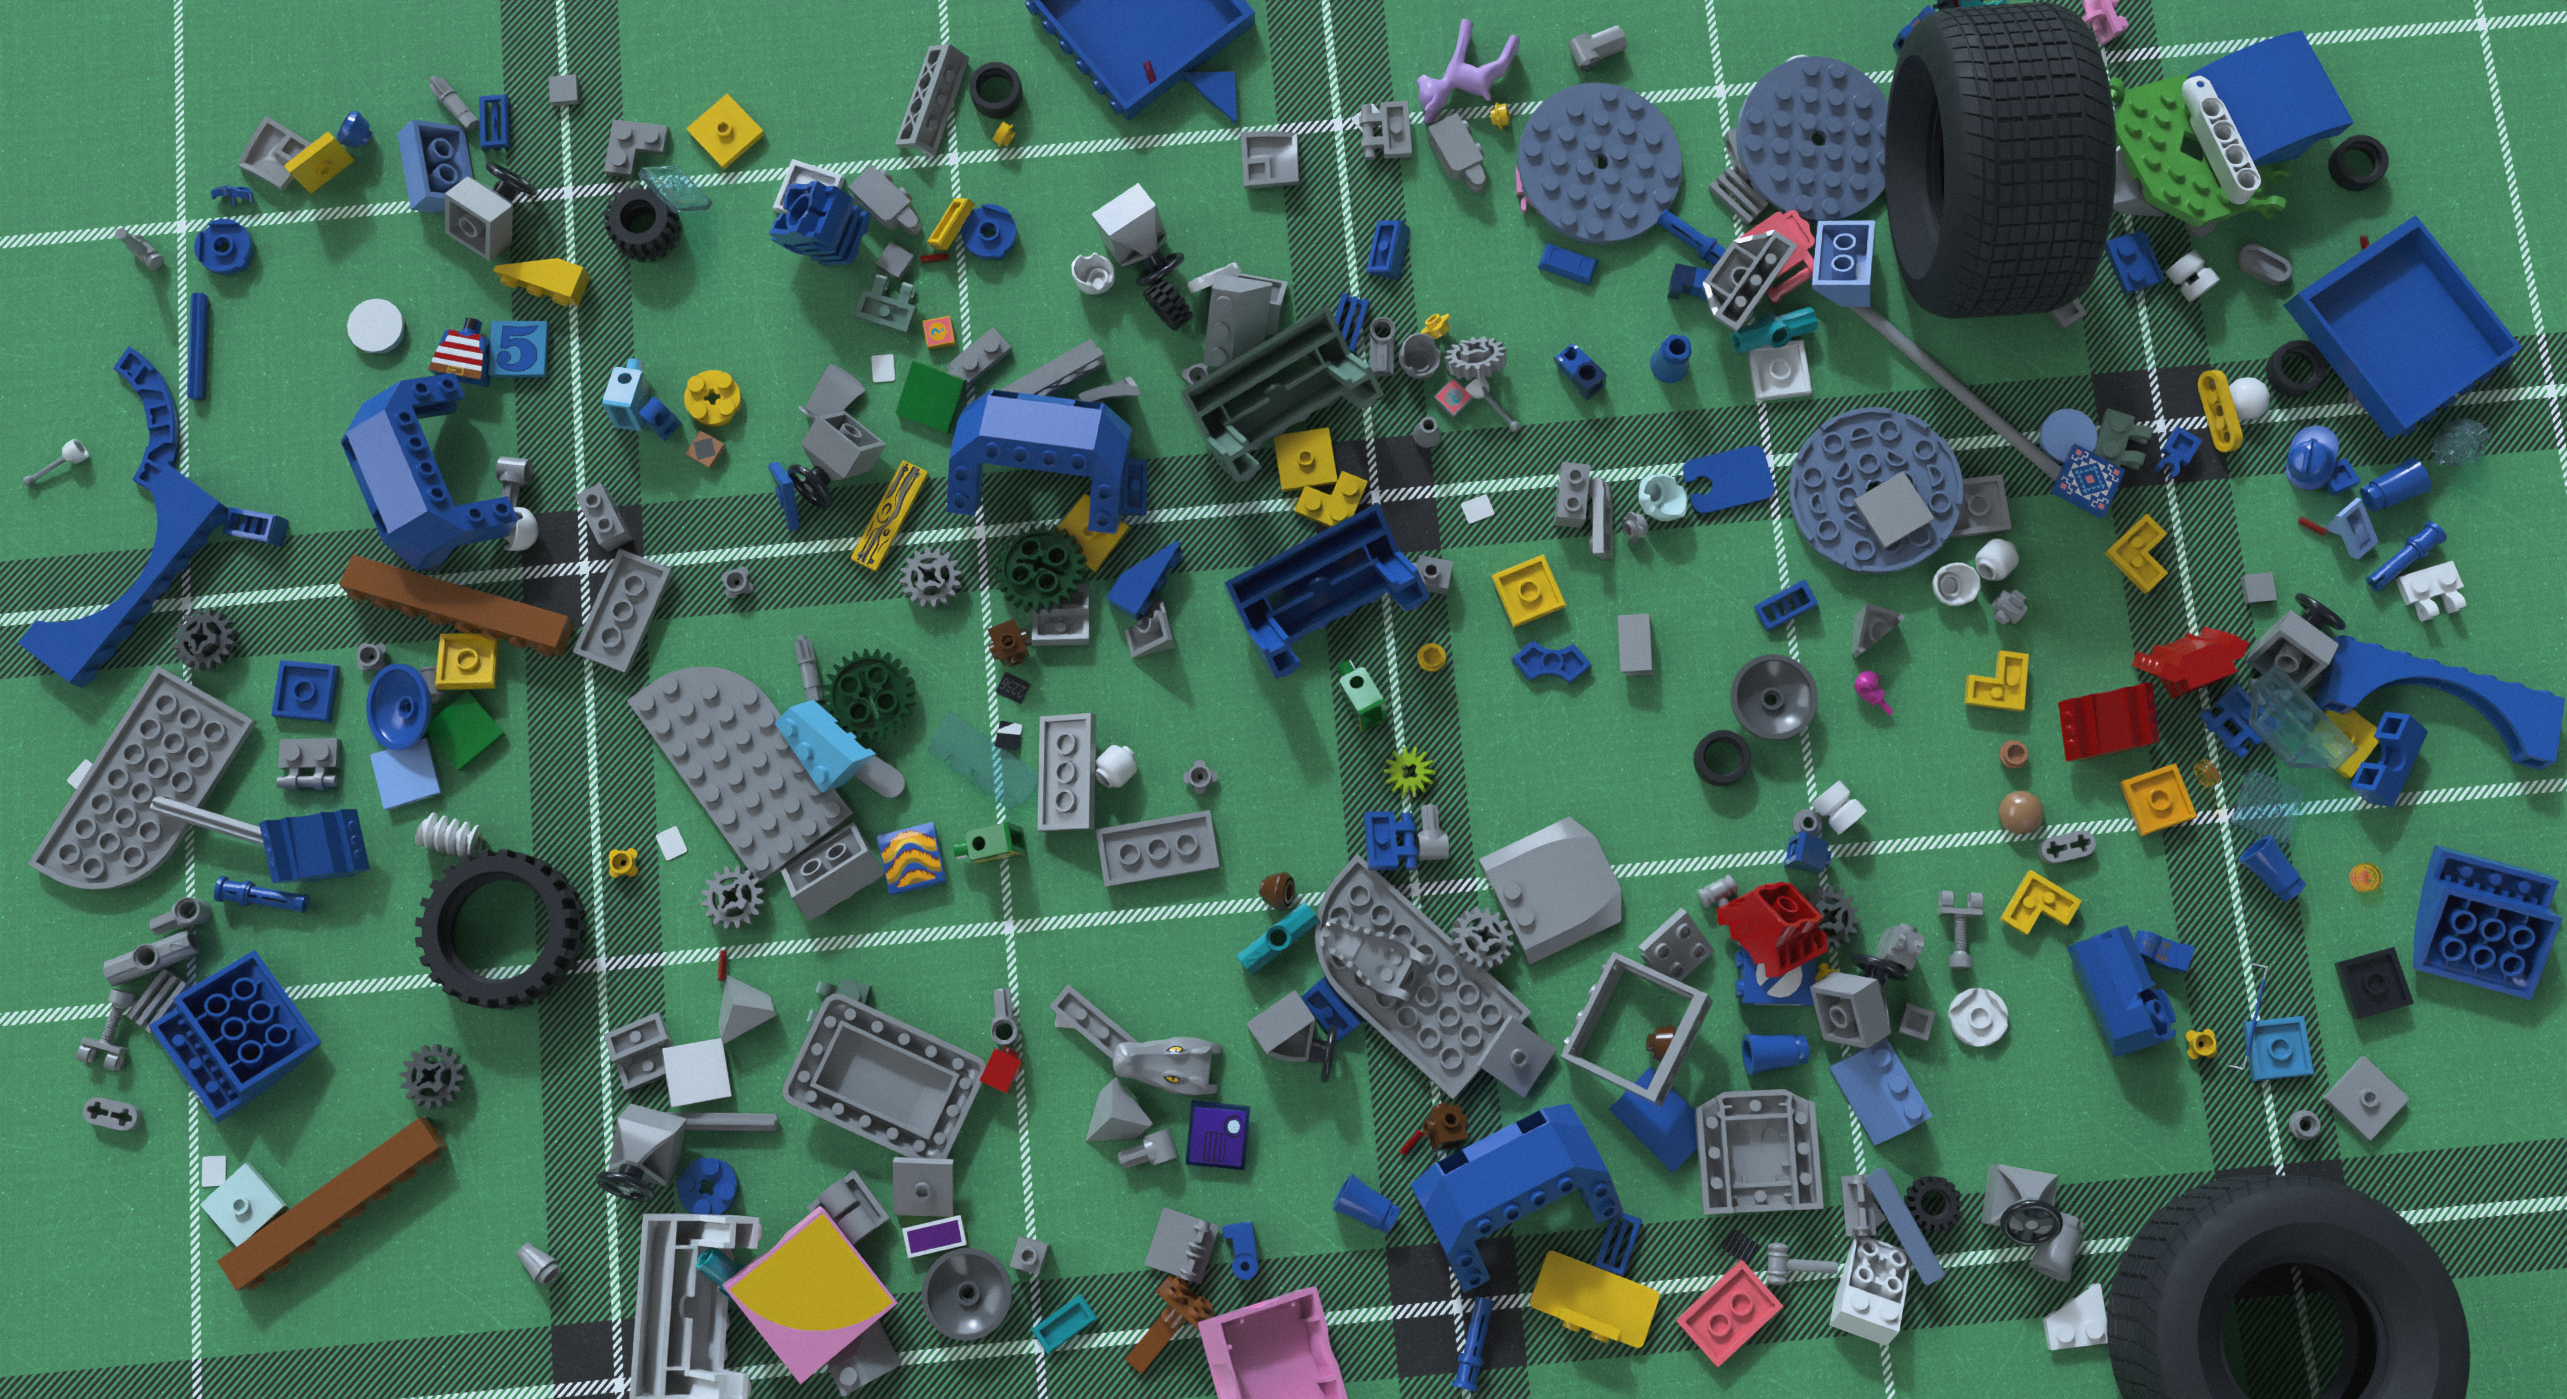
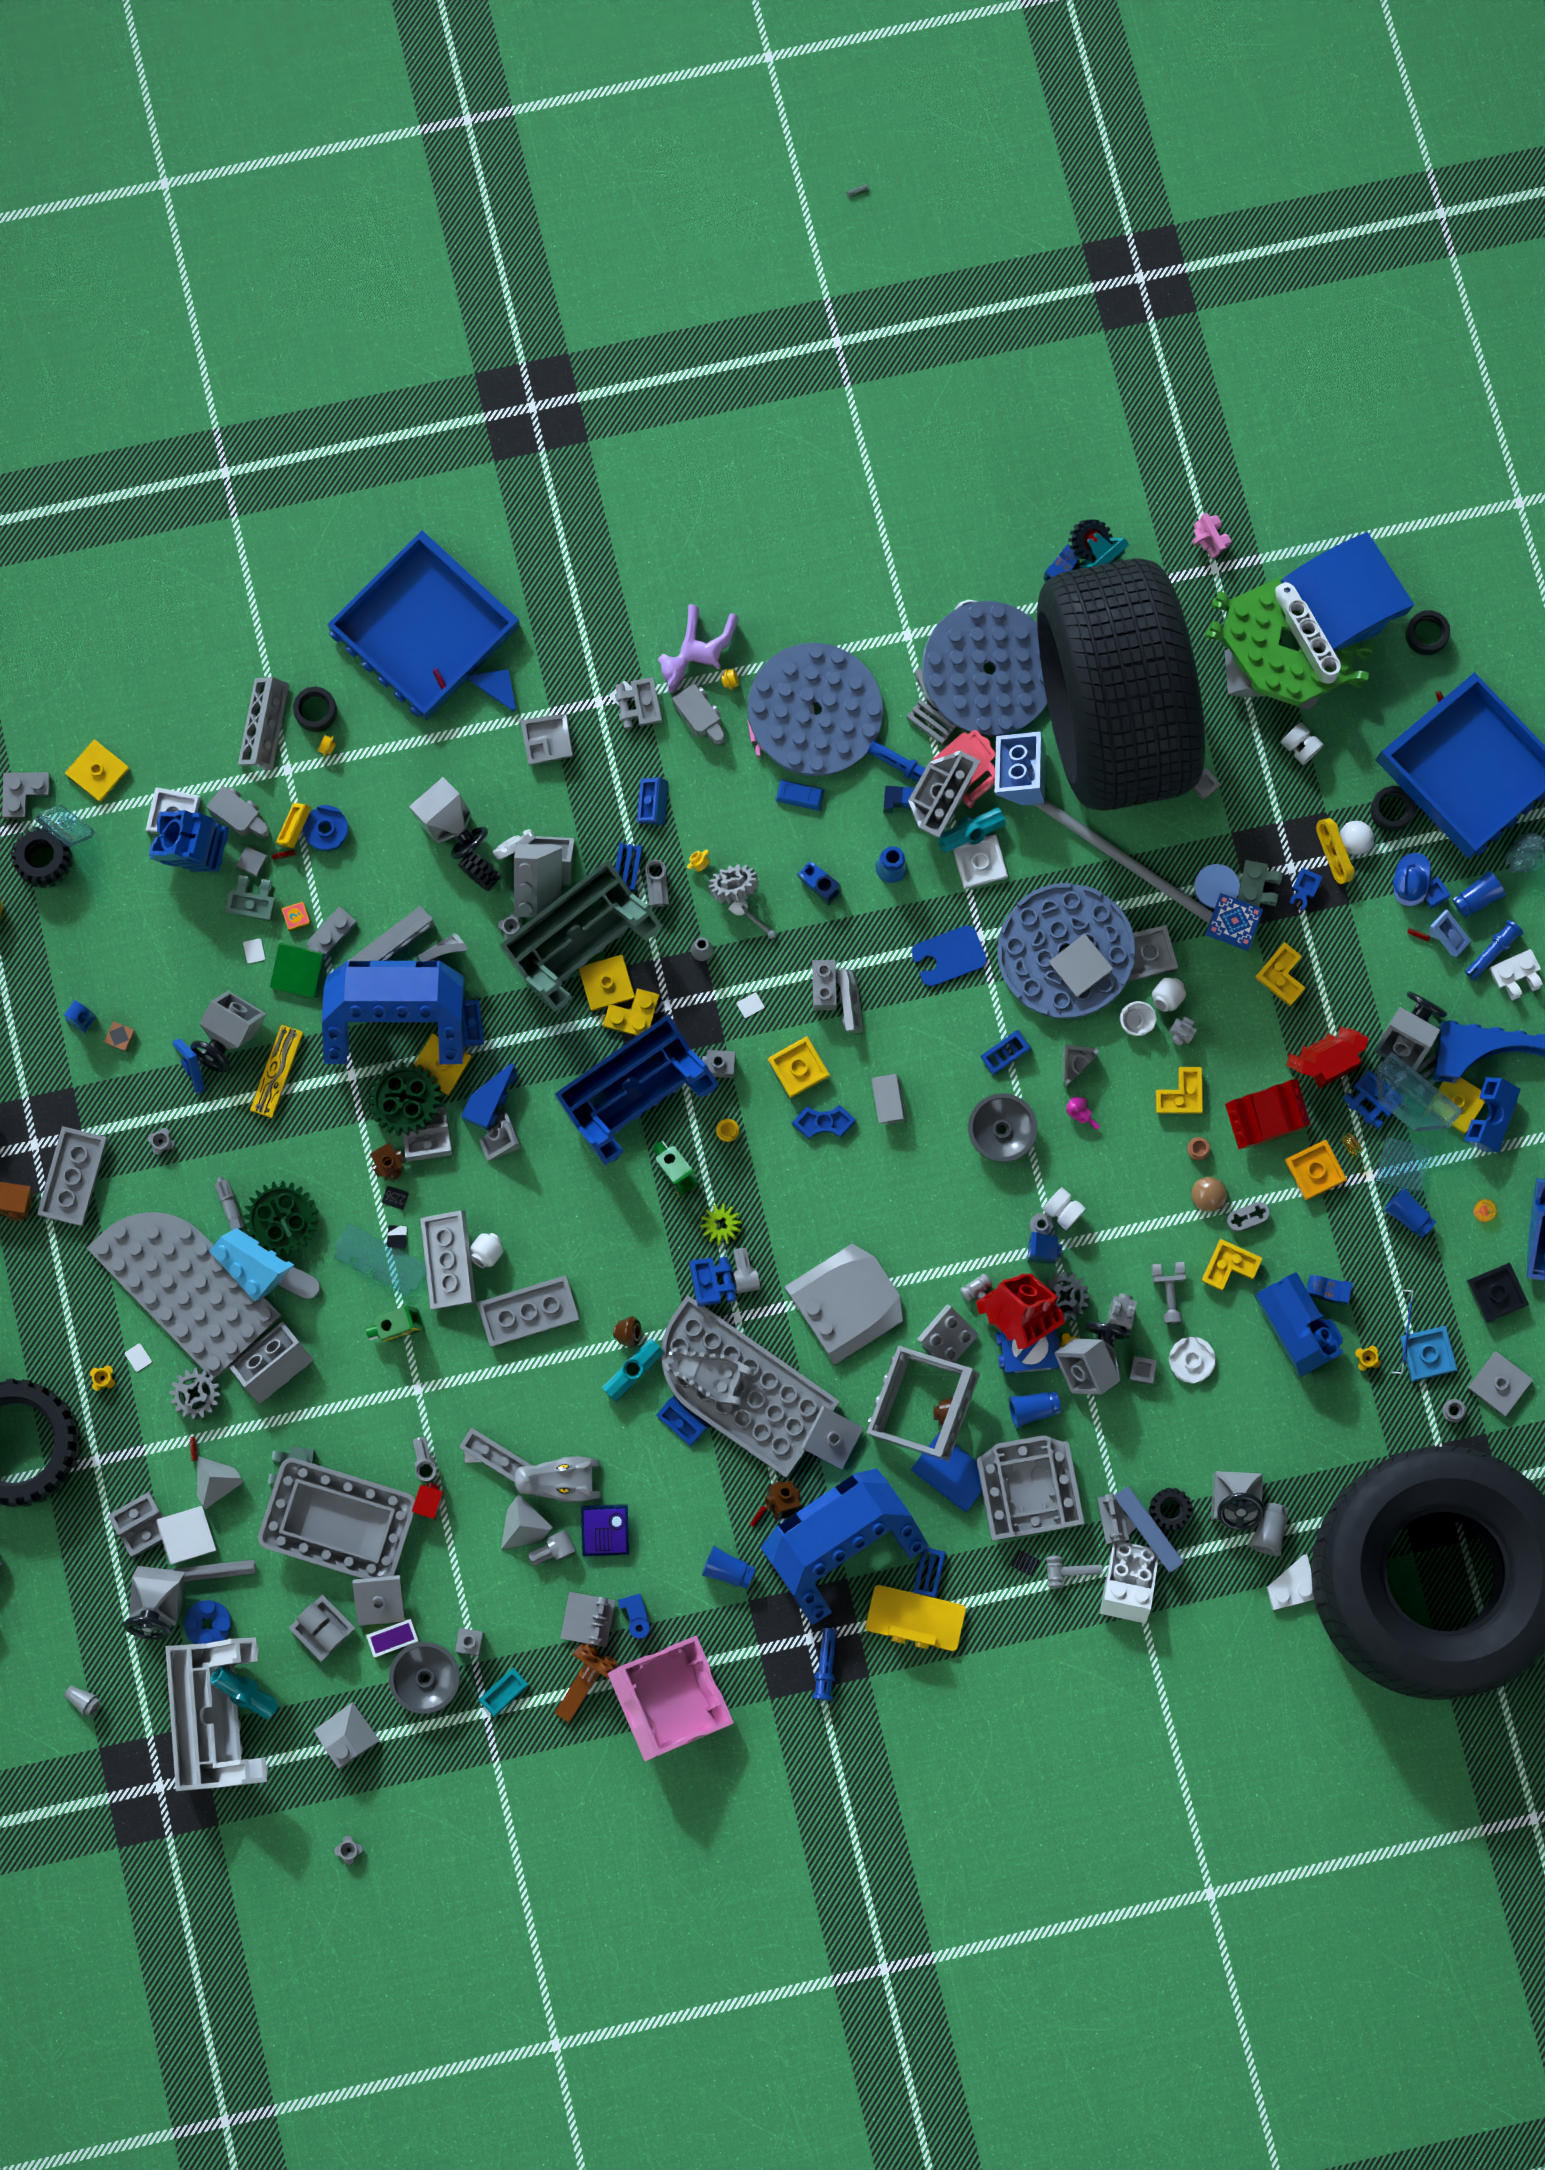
camera: 10 degrees left, 0 degrees up
(604, 517) = (46, 1102): light grey brick -> none
(627, 395) = (51, 1000): medium azure torso -> none
(699, 389) = (107, 987): yellow plate -> none
(810, 1294) = (302, 1692): yellow tile -> none
(833, 393) = (216, 978): light grey piece -> none
(911, 858) = (333, 1344): slope -> none
(937, 568) = (312, 1126): light grey gear -> none
(1093, 274) = (415, 852): white hair -> none
(1199, 769) = (554, 1256): light grey plate -> none
(1287, 1034) = (649, 1442): light grey piece -> none
(1419, 356) = (688, 887): light grey hair -> none
(1453, 397) = (719, 917): tile -> none
(1478, 940) = (789, 1356): light grey gear -> none
(1590, 49) = (797, 614): light grey piece -> none
(1634, 526) = (877, 1004): light grey plate -> none
(1662, 497) = (896, 978): light aqua hair -> none
(1722, 736) = (978, 1167): black tyre -> none
(1729, 1313) = (1021, 1614): coral plate -> none
(1880, 1091) = (1119, 1427): medium blue slope -> none
(2134, 262) = (1255, 736): blue plate -> none
(2258, 588) = (1380, 990): light grey tile -> none
(2263, 264) = (1360, 725): light grey tile -> none

